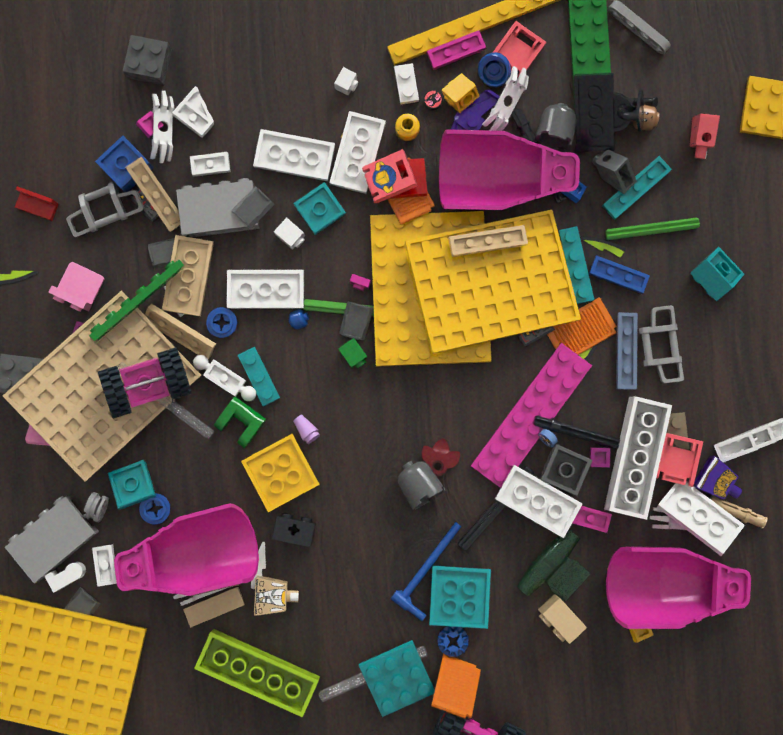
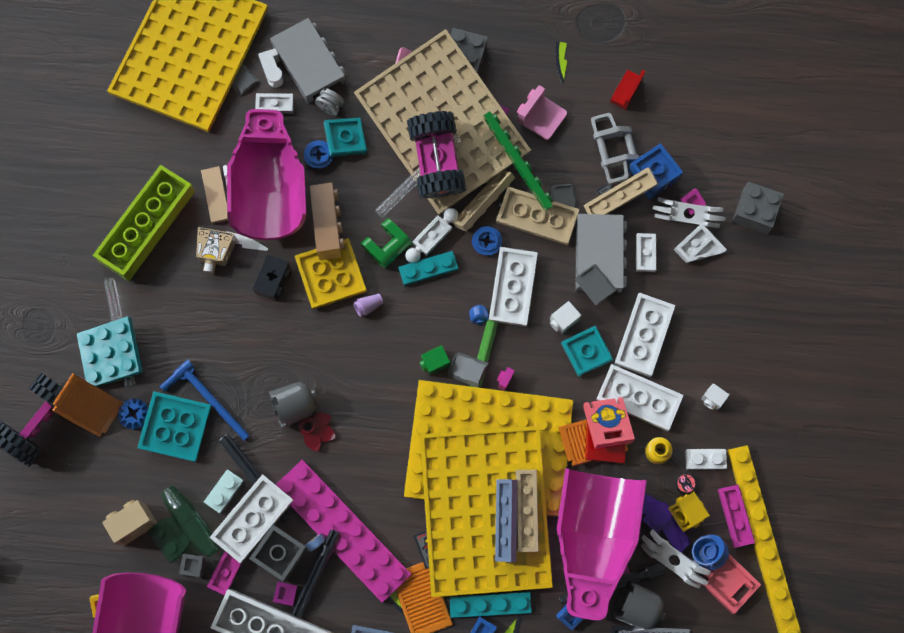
camera: 100 degrees right, 10 degrees down
(228, 486) = (326, 221): none -> medium nougat brick
(500, 258) = (506, 520): none -> sand blue plate
(513, 536) = (223, 491): none -> light aqua plate
(591, 549) = (192, 566): none -> dark grey brick

